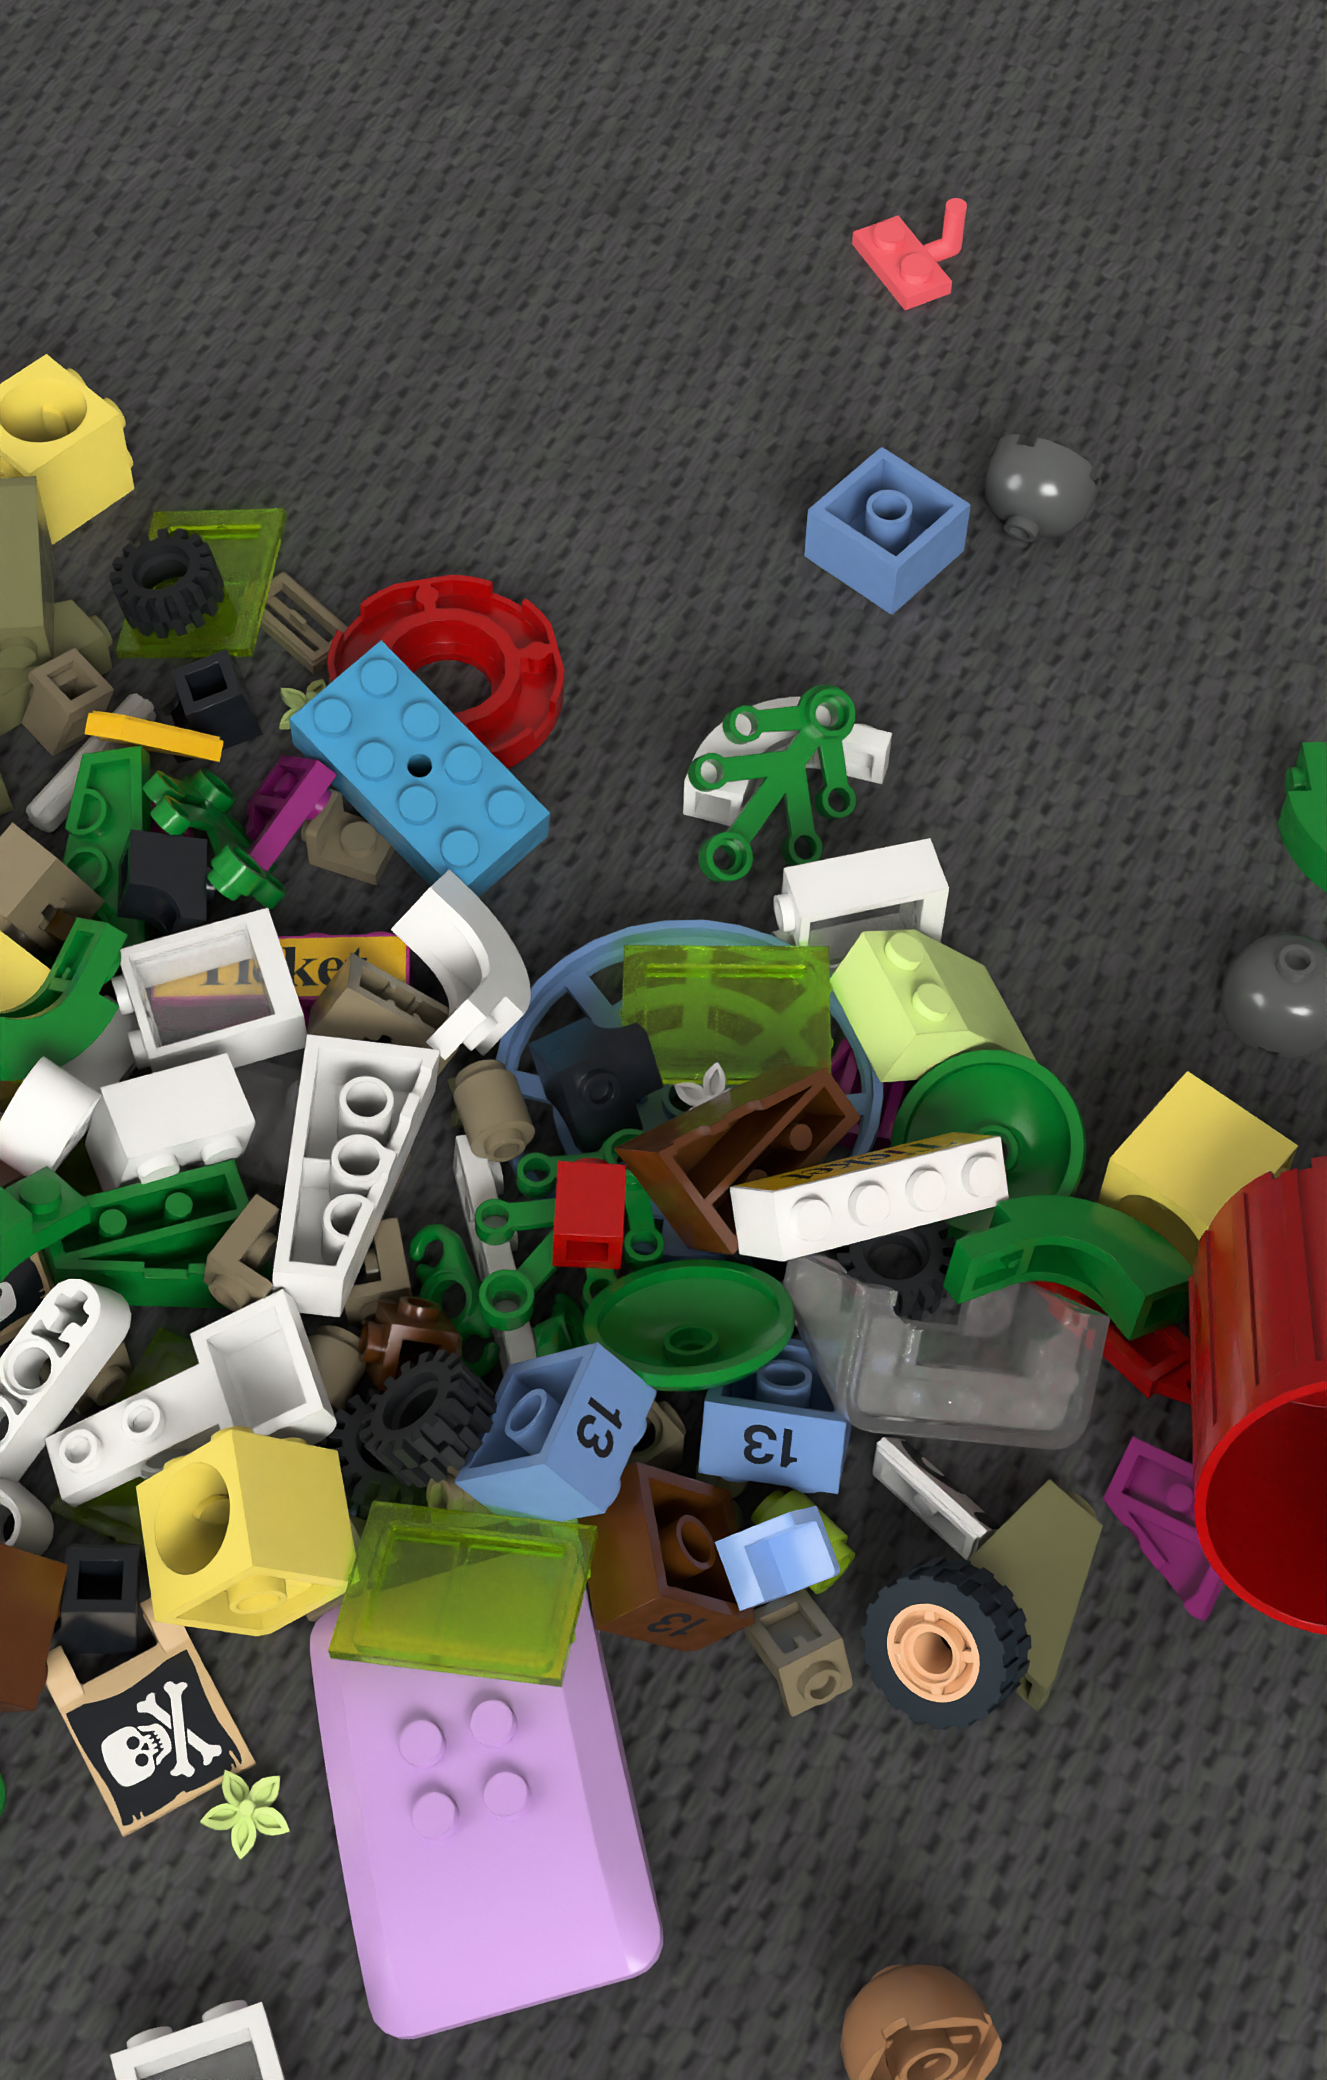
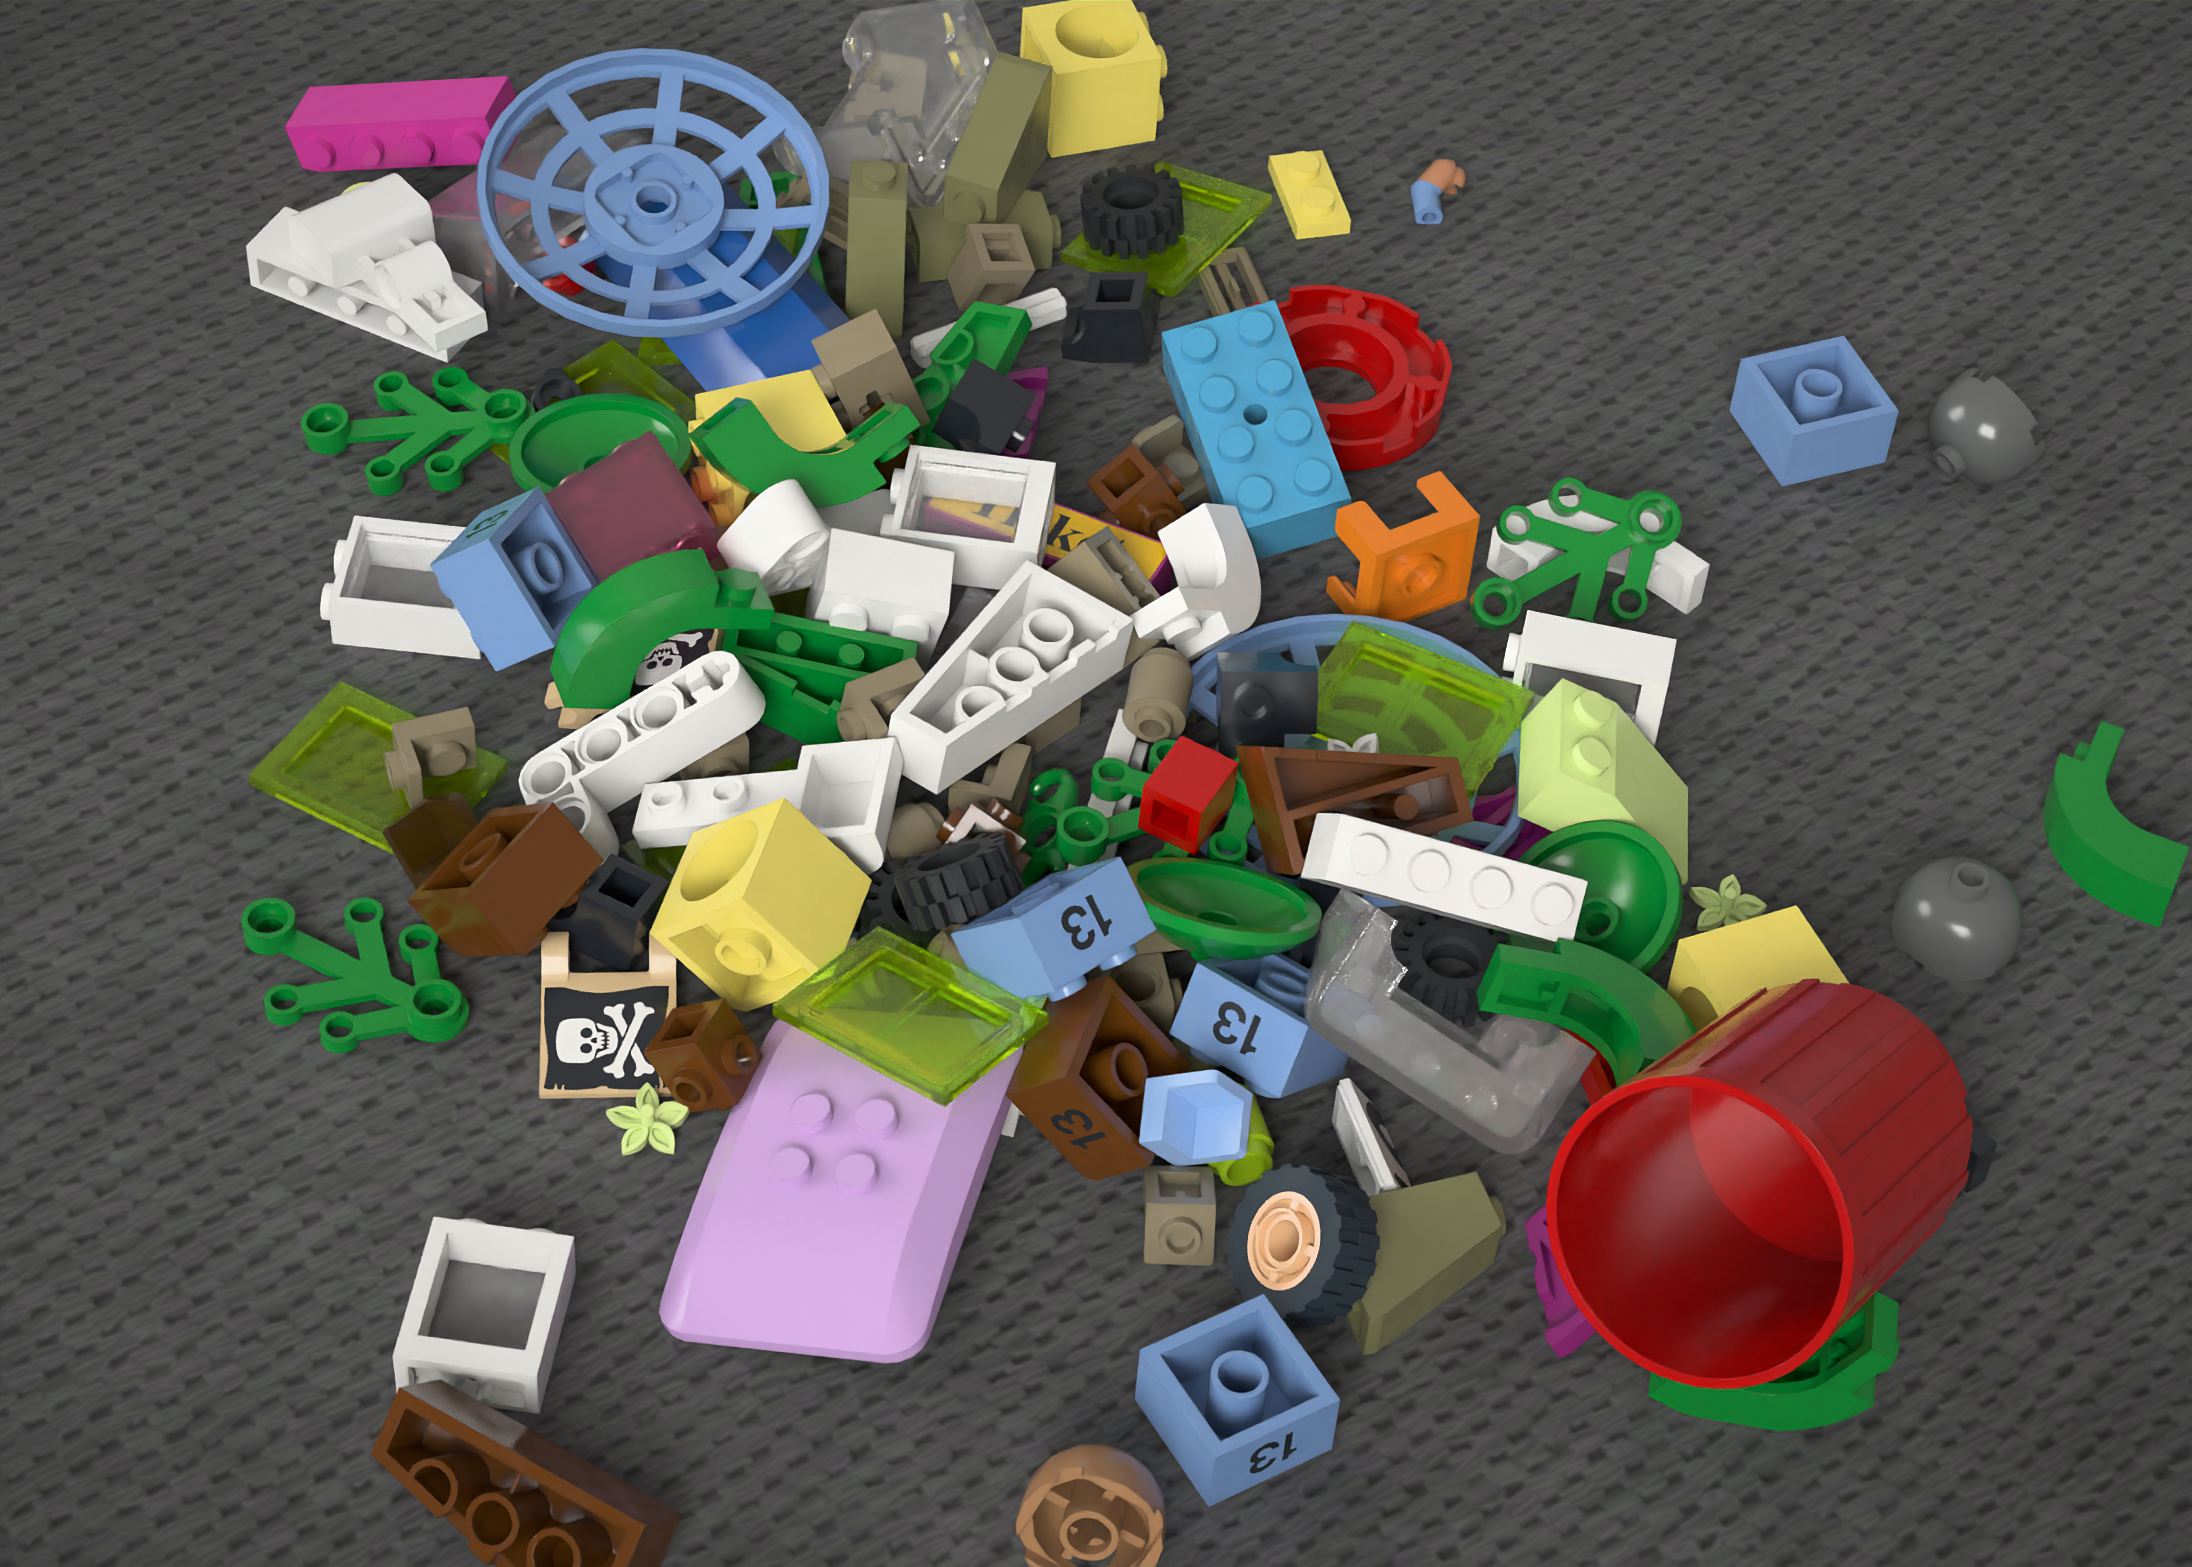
camera: 25 degrees right, 10 degrees down
(153, 736) = (1048, 317): yellow tile -> none
(207, 808) = (1060, 416): green plant -> none
(273, 1721) = (704, 1056): none -> reddish brown brick
(282, 802) = (1138, 409): magenta wing -> none
(311, 489) = (1309, 194): none -> light yellow plate
(344, 893) = (1147, 503): none -> reddish brown brick
(416, 435) = (1425, 191): none -> arm
(634, 858) = (1413, 565): none -> orange panel
(904, 263) = (1980, 212): coral plate -> none
(972, 1838) = (1236, 1399): none -> medium blue brick
(1087, 1074) = (1726, 905): none -> yellowish green plant

